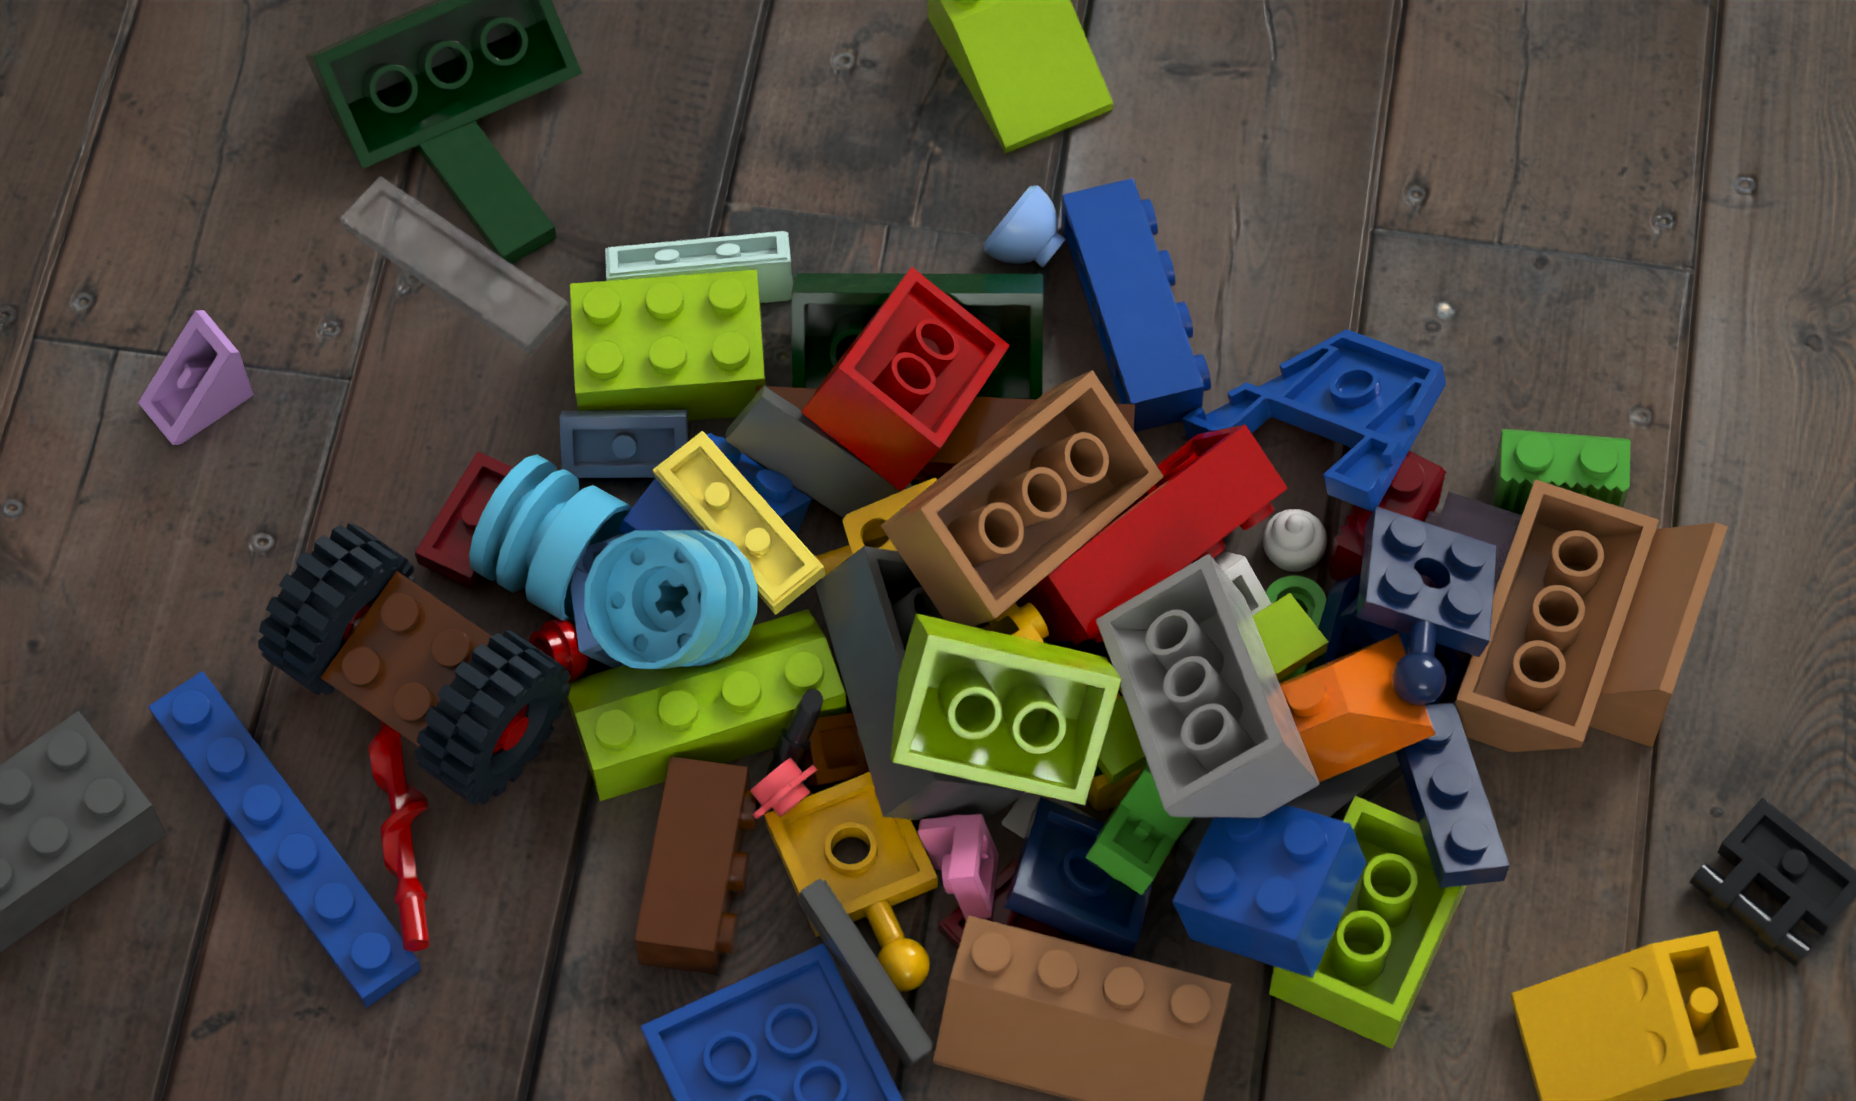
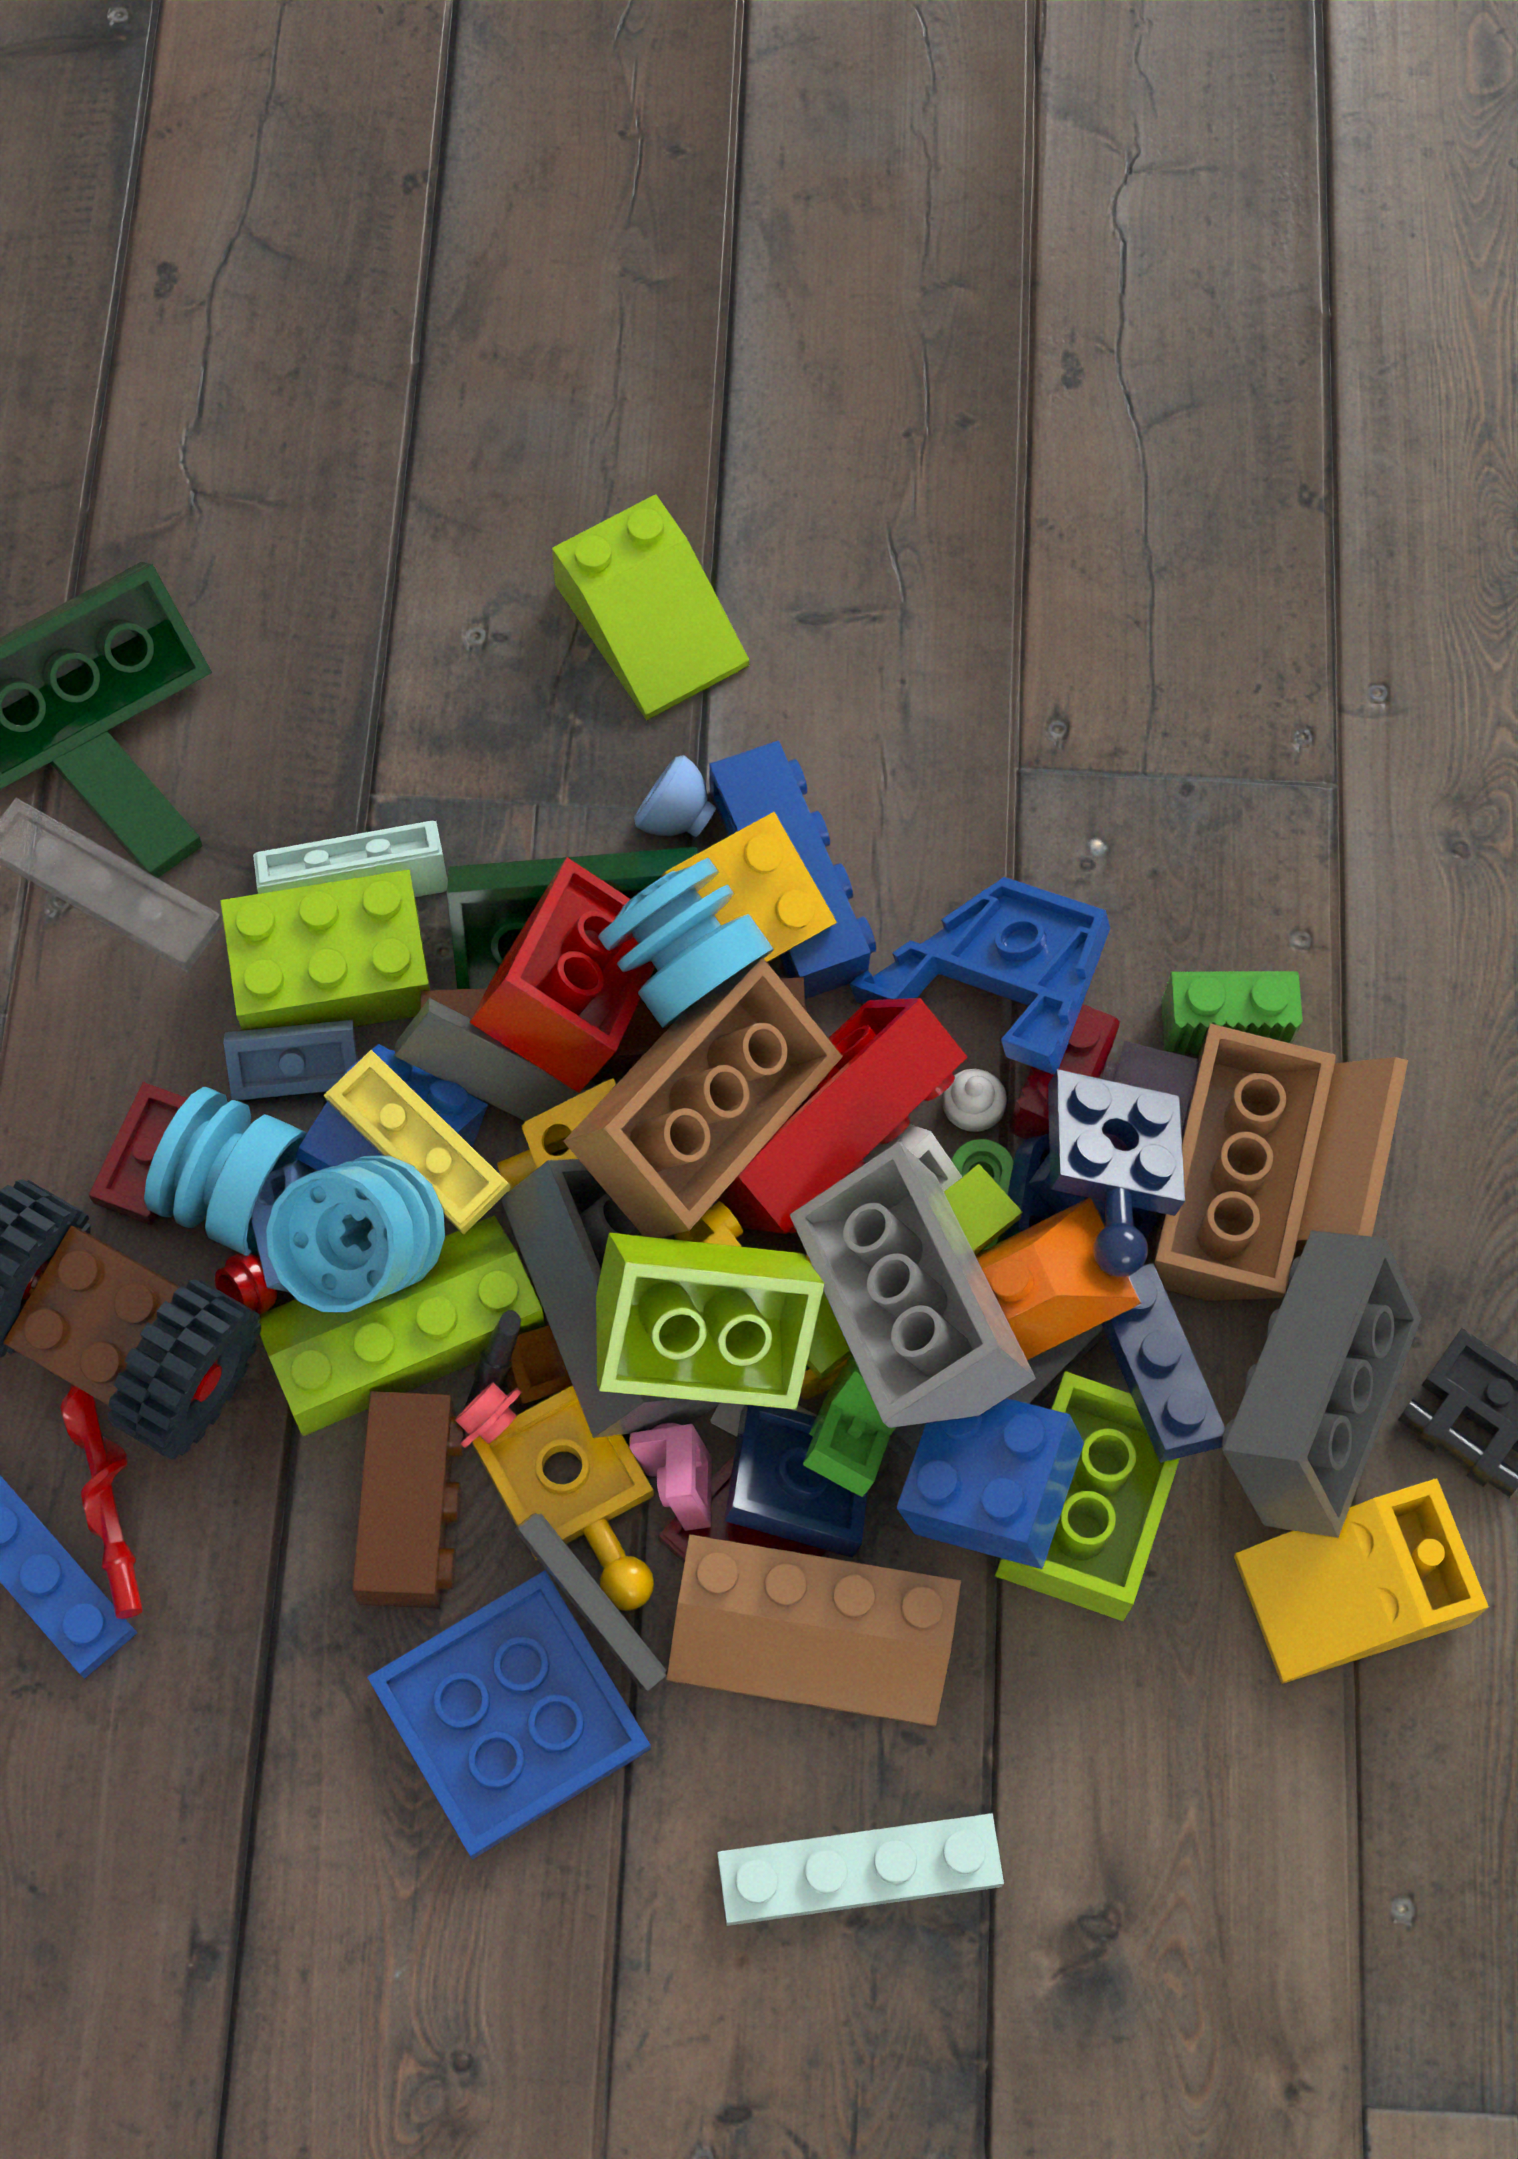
camera: 10 degrees left, 5 degrees up
(1013, 341) = (683, 940): none -> medium azure wheel
(1088, 318) = (766, 884): none -> yellow plate
(1612, 829) = (1322, 1383): none -> dark grey brick

